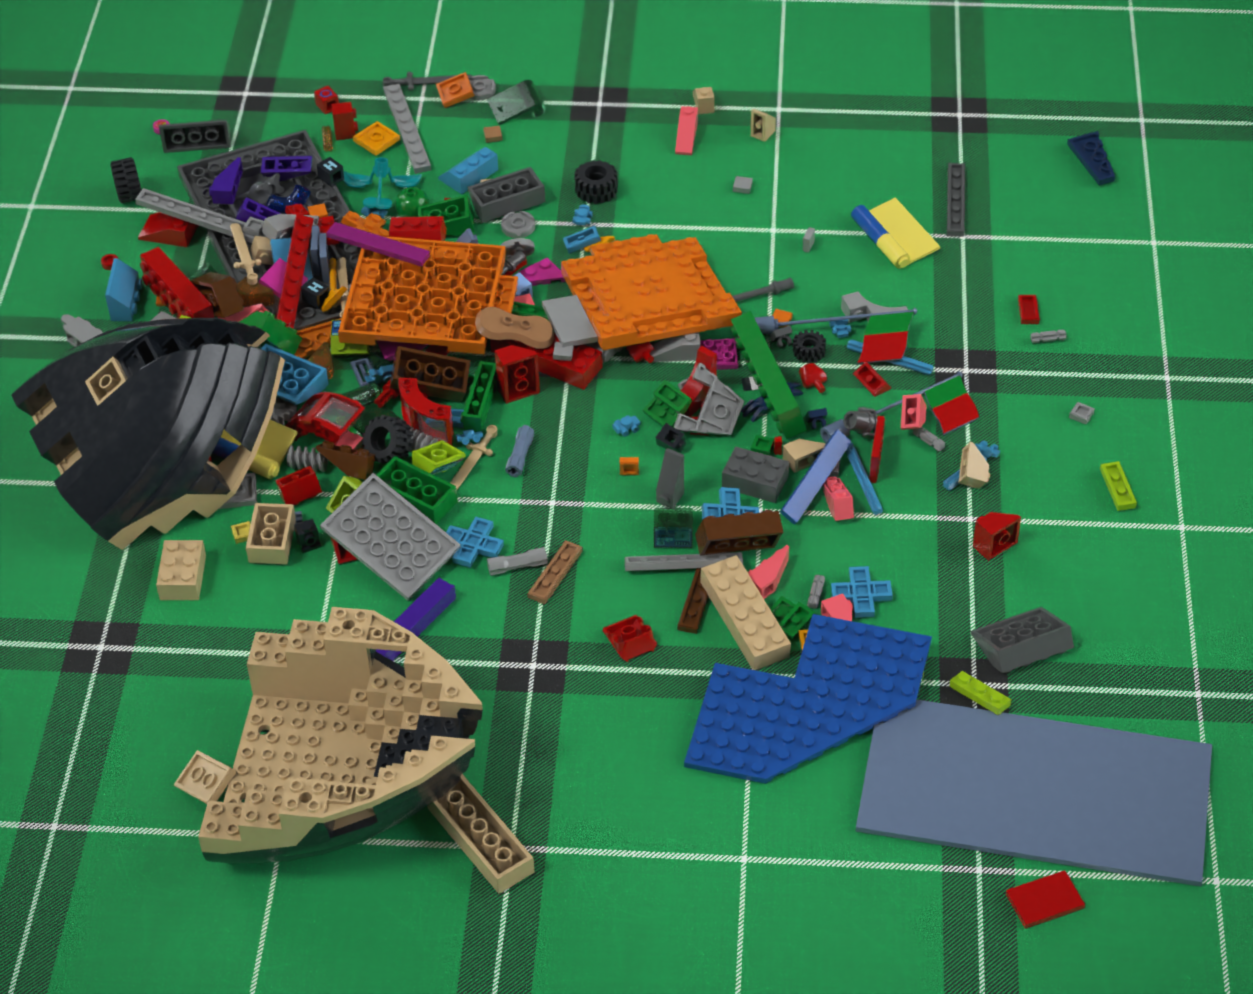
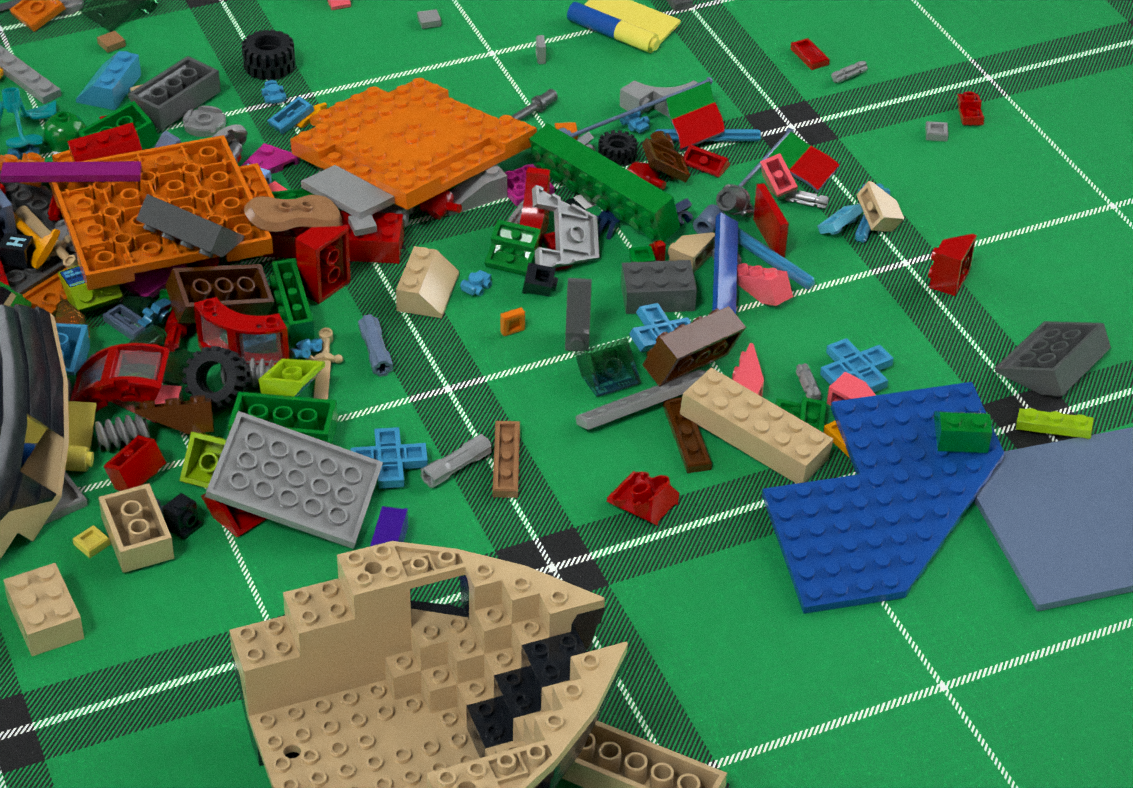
camera: 30 degrees left, 5 degrees down
(427, 316) = (188, 227): none -> dark grey slope
(587, 413) = (426, 283): none -> tan slope
(836, 366) = (664, 158): none -> reddish brown plate
(888, 672) = (963, 431): none -> green slope
(946, 463) = (842, 217): none -> medium azure plate
(1118, 486) = (1027, 185): lime plate -> none
(1125, 402) = (970, 108): none -> red slope

